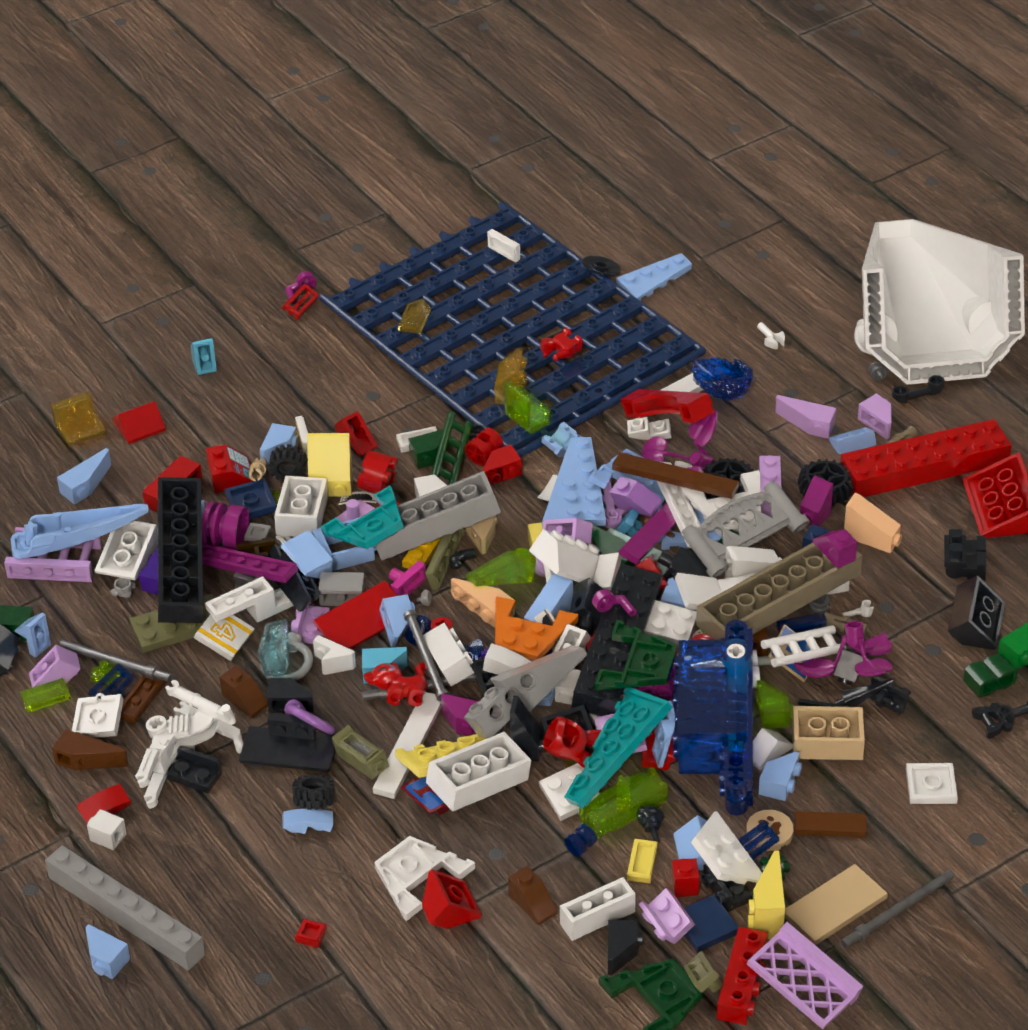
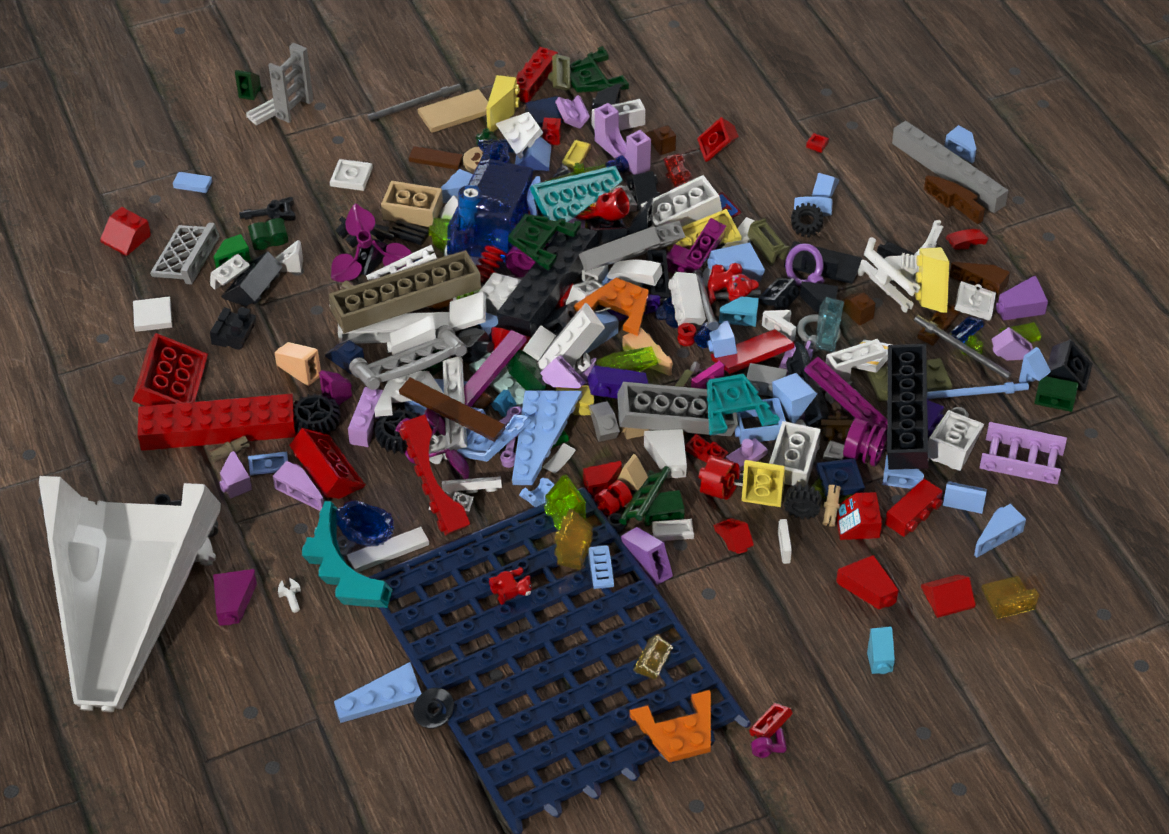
camera: 170 degrees left, 5 degrees up
(39, 728) = (1022, 300): none -> medium lavender slope
(64, 627) = (1008, 388): none -> light blue bar
(66, 529) = (1007, 443): light blue piece -> none
(106, 829) = (964, 219): white brick -> none
(117, 494) = (964, 497): none -> light blue slope
(122, 865) = (955, 195): none -> reddish brown slope
(148, 697) = (932, 279): none -> light yellow slope
(217, 414) = (868, 582): none -> red slope
(278, 436) = (809, 537): light blue slope -> none
(292, 861) = (825, 186): none -> light blue slope
(340, 694) = (780, 293): none -> black bracket
(380, 266) = (679, 736): none -> orange wing
(396, 714) = (741, 254): none -> light blue slope
(409, 866) = (739, 170): white wing -> none
(436, 720) = (705, 243): none -> magenta slope
(437, 400) = (649, 553): none -> medium lavender slope
(470, 461) = (633, 474): none -> tan slope
(479, 376) = (597, 555): none -> light blue slope
(496, 836) = (676, 169): none -> clear red hips
(503, 245) = (535, 732): white tile -> none
(512, 510) = (604, 421): none -> light grey slope
(514, 536) = (607, 381): none -> dark purple brick
(538, 798) = (643, 187): none -> black brick
(558, 847) = (607, 135): none -> lavender arch
(605, 599) = (553, 277): magenta plate -> none
(631, 494) = (494, 406): medium lavender slope -> none
(633, 441) = (472, 485): none -> white plate
(730, 345) = (351, 586): none -> teal arch
(788, 438) = (326, 464): none -> red slope
(816, 965) = (487, 67): lavender fence -> none
(825, 321) = (233, 594): none -> magenta slope
(837, 547) = (348, 292): magenta slope -> none
(945, 647) = (291, 258): none -> white slope
(1008, 612) = (228, 271): none -> white bracket

